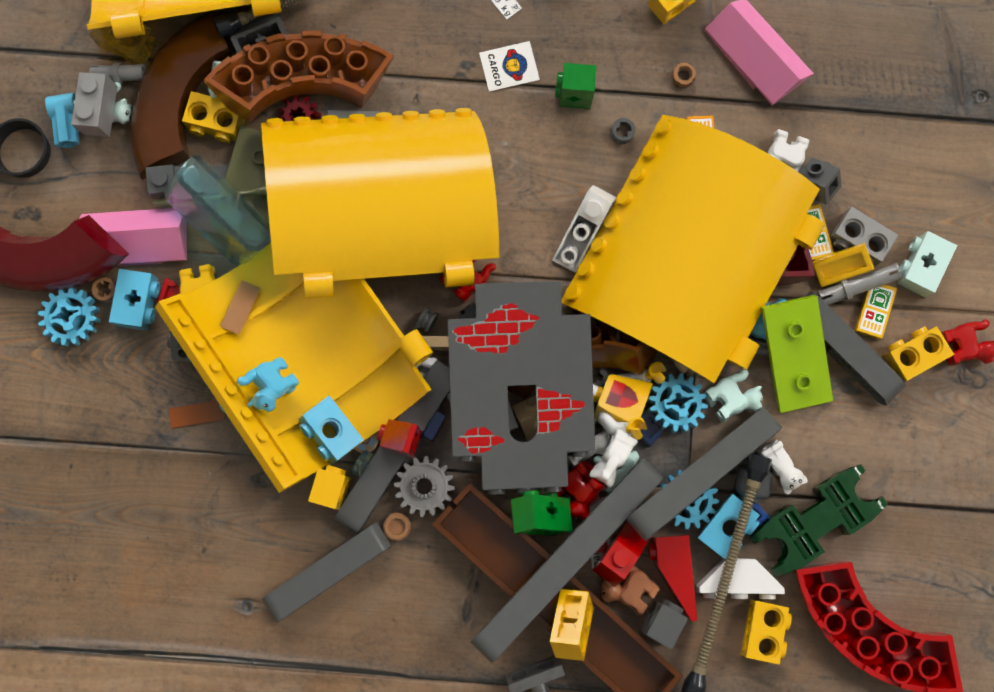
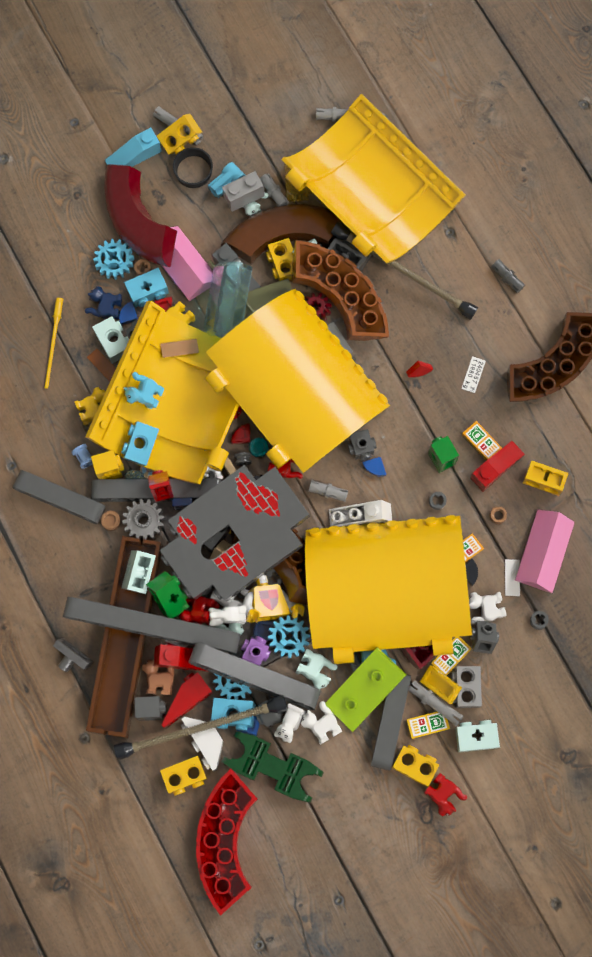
camera: 60 degrees right, 5 degrees down
(95, 433) = (57, 316): none -> yellow piece
(118, 358) = (106, 305): none -> dark blue animal
(151, 344) = (127, 314): none -> blue tile
(154, 382) = (106, 330): none -> light aqua brick
(237, 460) = (90, 404): none -> yellow animal
(295, 510) = (83, 456): none -> light blue bush
(395, 303) = (241, 435): none -> red tile
(424, 293) = (258, 447): none -> teal tile
(453, 50) = (419, 369): none -> red tile
(489, 533) = (138, 571): none -> light aqua brick
(506, 171) = (360, 439): none -> dark grey brick
(509, 66) = (433, 408): white sticker -> none
(530, 246) = (328, 490): none -> light grey pin
(536, 175) = (375, 467): none -> blue tile
(571, 625) = (113, 650): yellow brick -> none
(585, 36) = (481, 440): none -> tile
(627, 39) = (496, 466): none -> red slope
(671, 453) = (261, 655): none -> medium lavender brick
(758, 104) = (512, 587): none -> white sticker
(805, 429) = (323, 725): none -> white animal
(837, 103) = (533, 619): none -> dark grey bush

